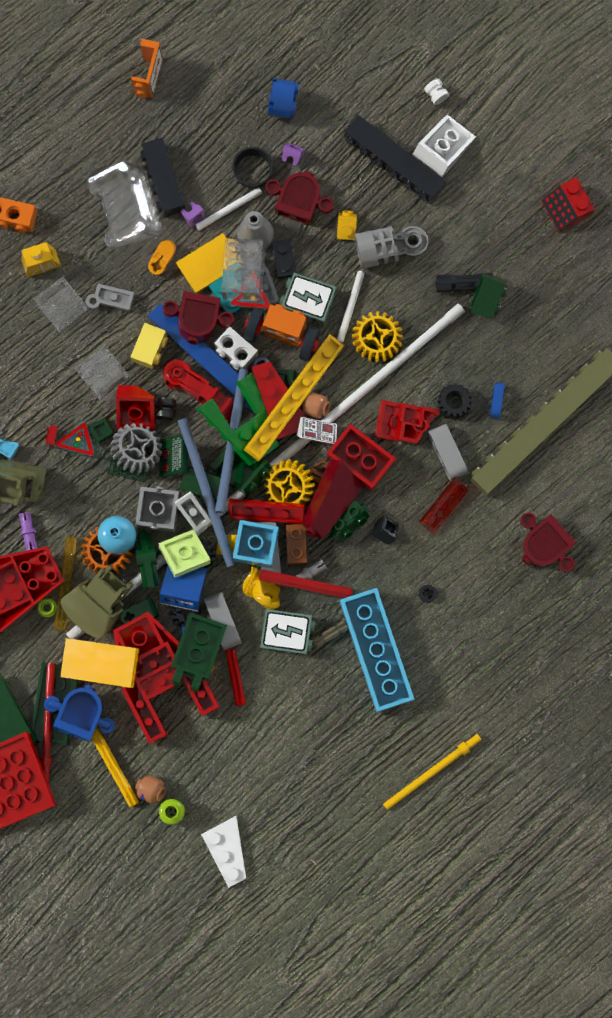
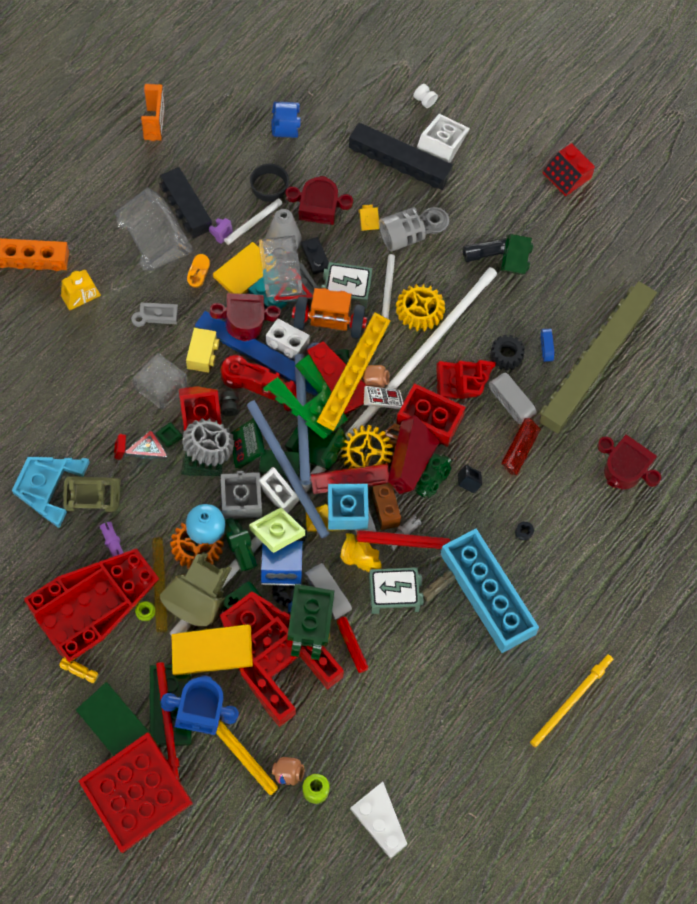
camera: 20 degrees left, 15 degrees down
(61, 305) = (108, 325): clear brick -> none
(293, 151) = (304, 163): medium lavender tile -> none

